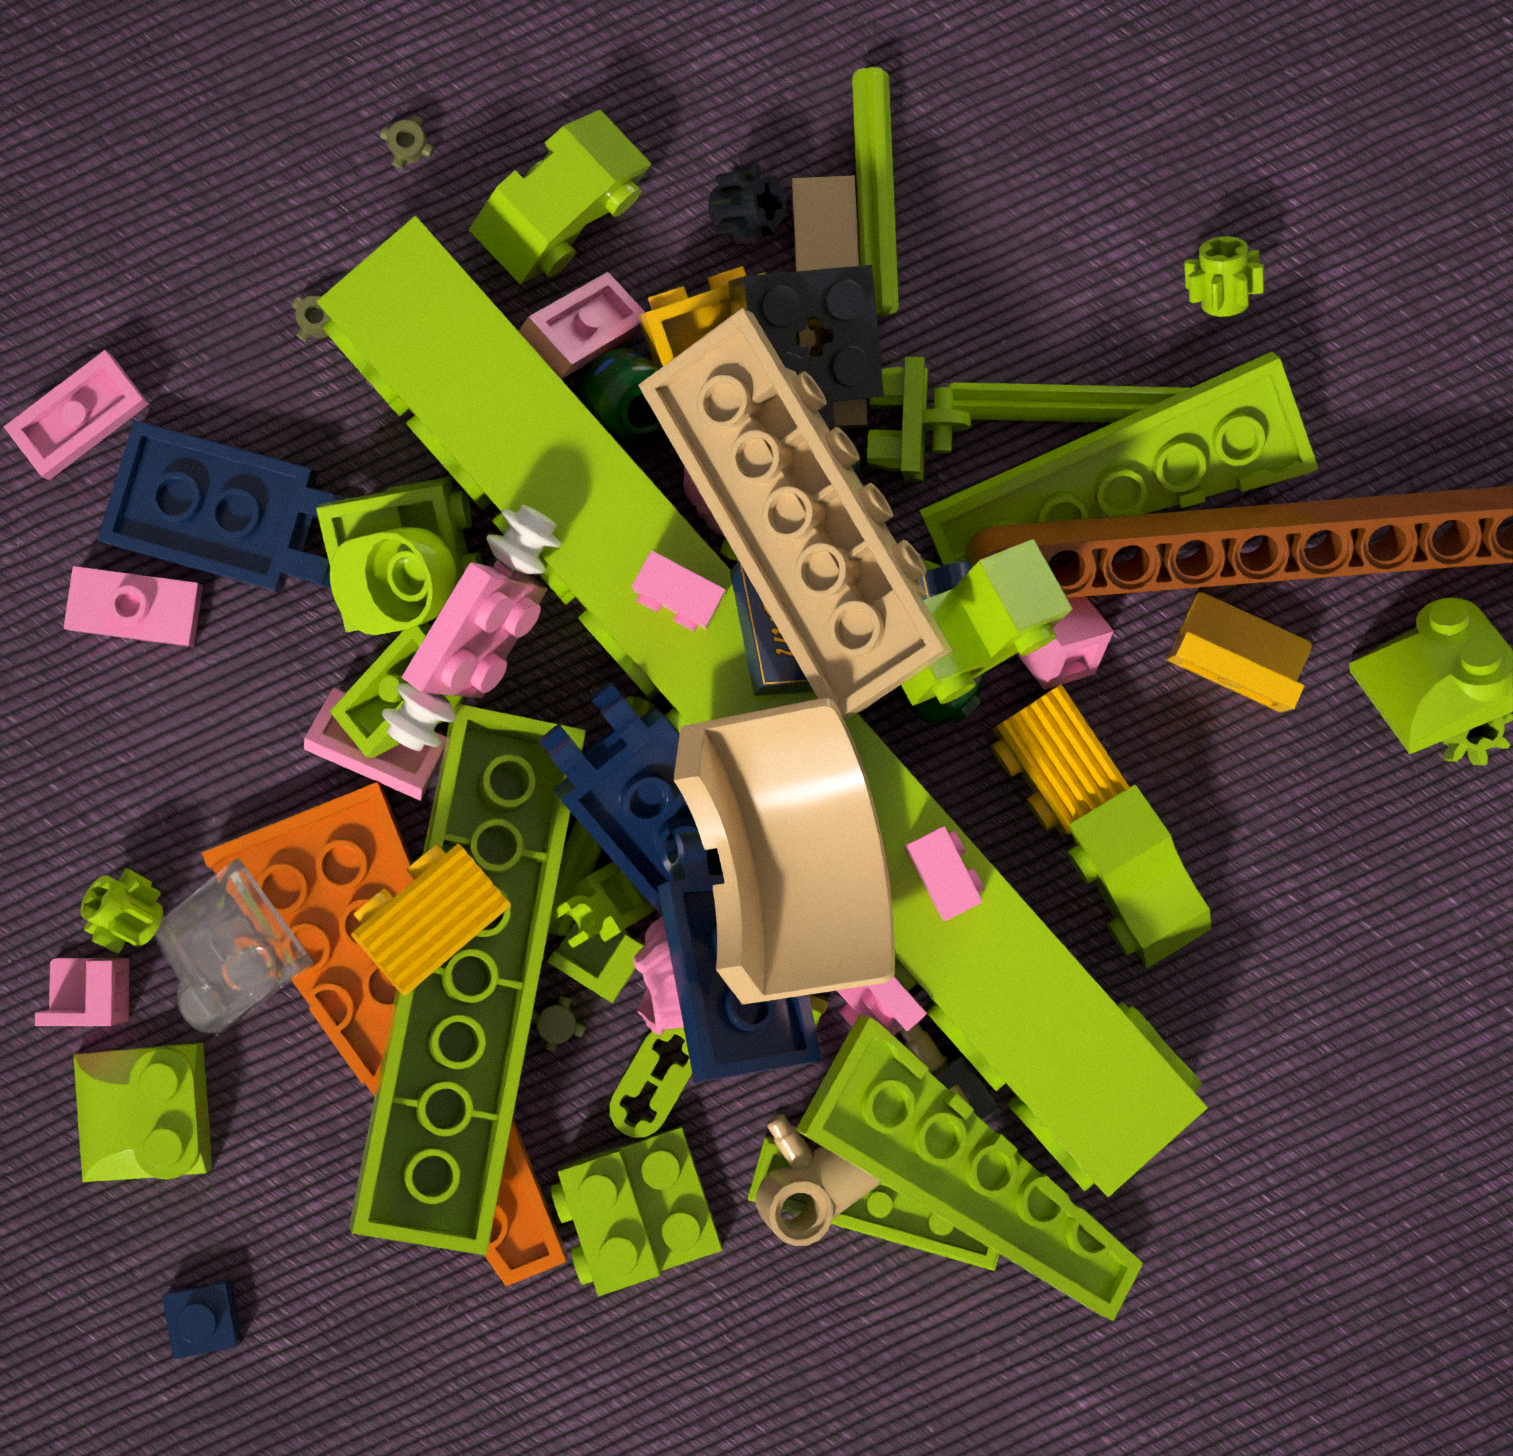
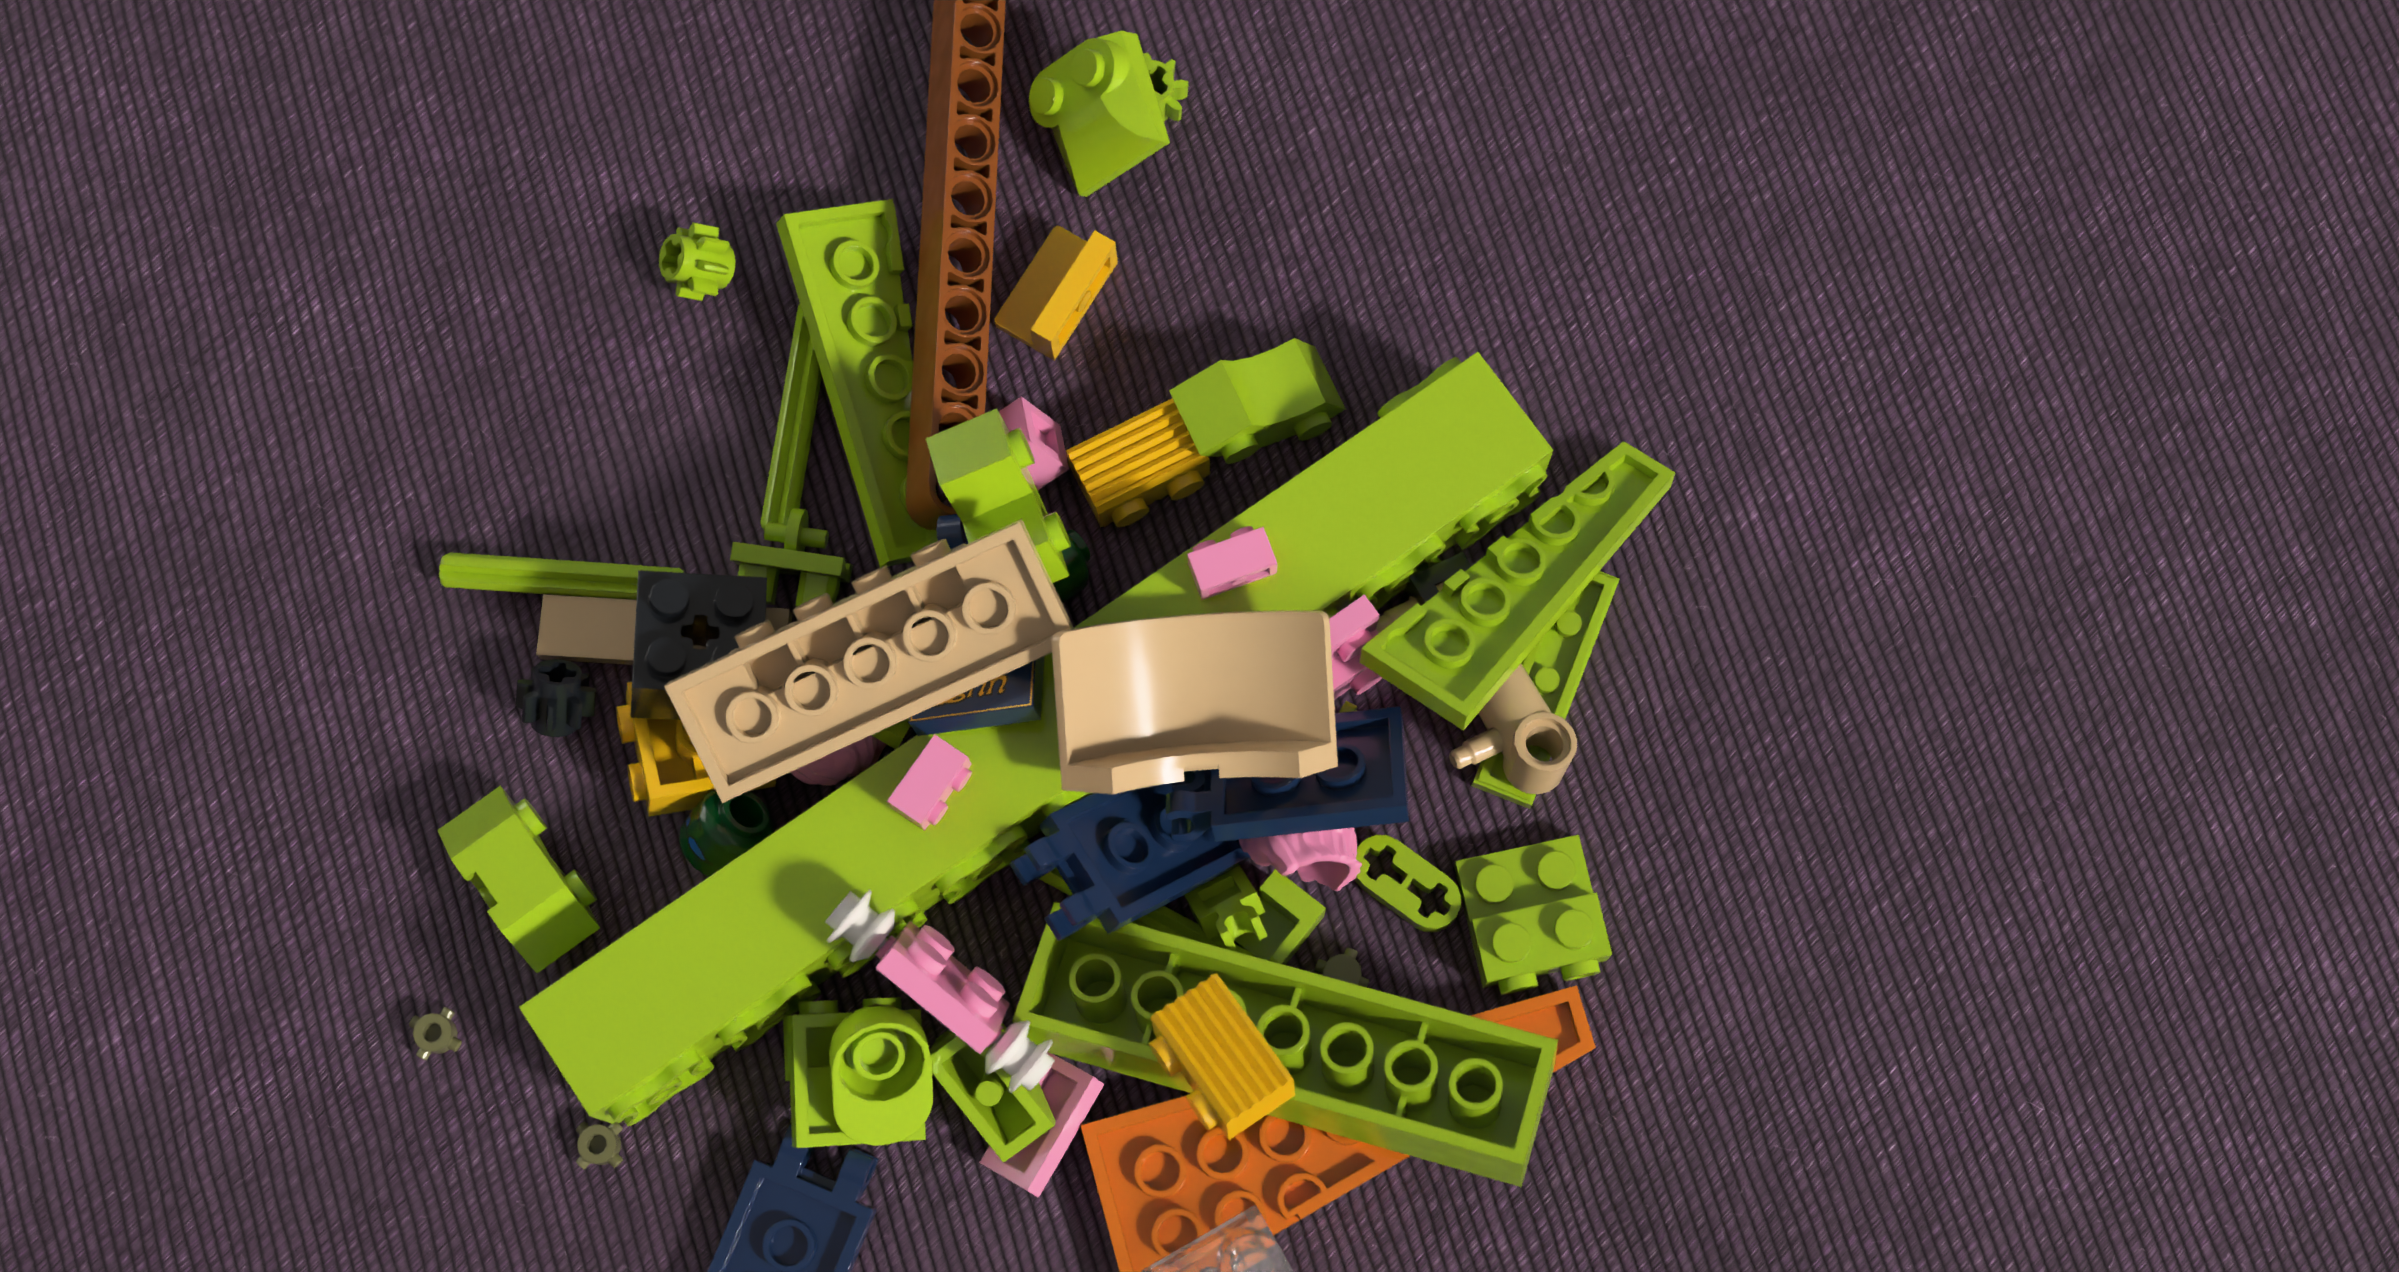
camera: 85 degrees left, 10 degrees down
(583, 325) = (649, 864): bright pink plate -> none

